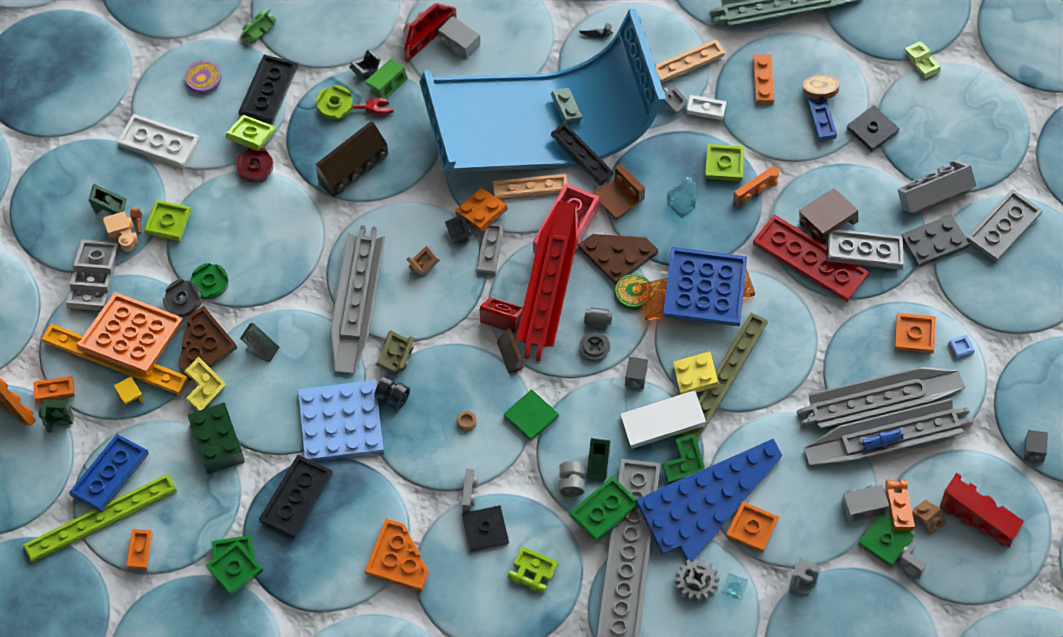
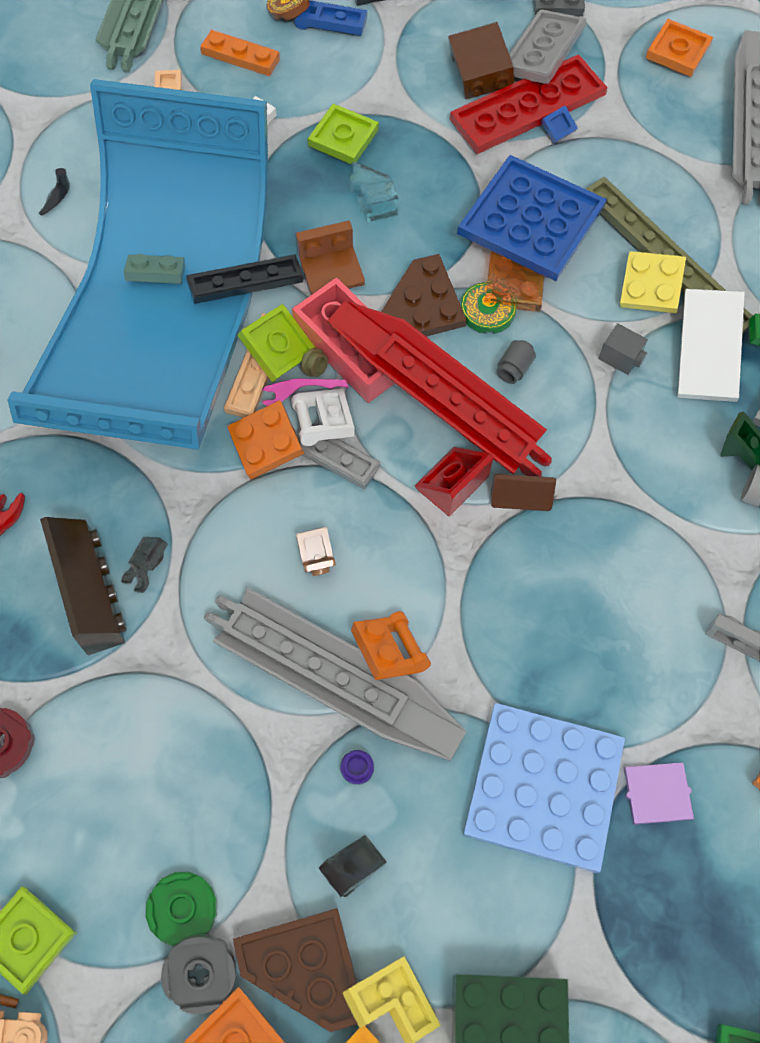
camera: 70 degrees left, 5 degrees up
(295, 496) = (667, 916): black plate -> none
(312, 329) = (357, 767): none -> dark purple plate
(361, 478) = (658, 793): none -> lavender piece
(378, 311) = (381, 650): none -> orange plate
(385, 184) = (146, 557): none -> clear smoke plate
(393, 393) = (537, 681): black wheel -> none
(395, 352) = (461, 652): olive bracket -> none
(458, 230) = (286, 483): black bracket -> none
(466, 421) = (613, 597): medium nougat tile -> none
(511, 235) = (332, 414): none -> white plate
(518, 205) = (287, 388): none -> dark pink arm
(531, 415) = (636, 506): green tile -> none
(541, 212) = (314, 362): none -> olive plate
(543, 186) = (276, 342): none -> lime plate
(593, 339) = (561, 375): dark grey gear -> none
(756, 185) = (398, 115): orange plate -> none
(800, 281) = (559, 124): none -> blue plate
(961, 346) = (711, 17): light blue tile -> none

